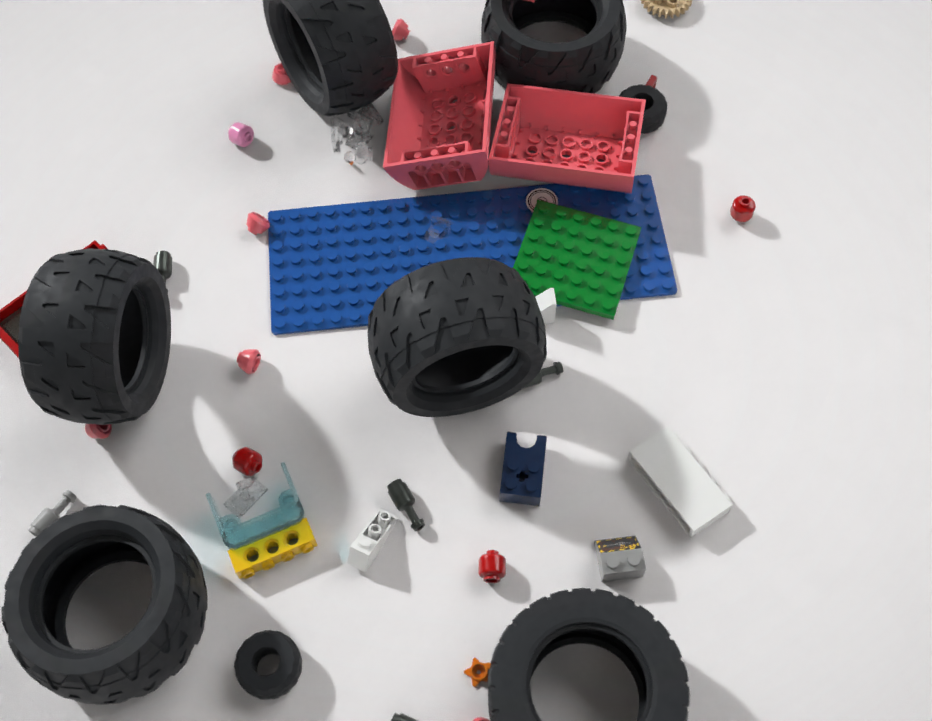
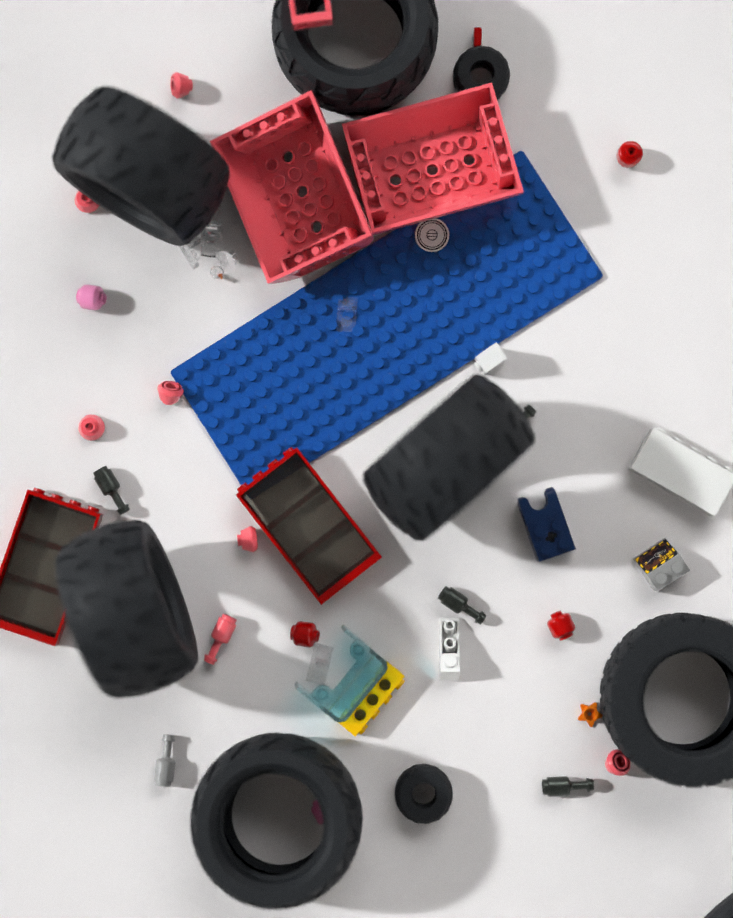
camera: 30 degrees left, 25 degrees up
(174, 428) = (221, 634): none -> coral piece
(178, 223) = (95, 422): none -> coral cone
(307, 372) = (308, 525): none -> clear smoke window
(578, 257) = (493, 287): green plate -> none

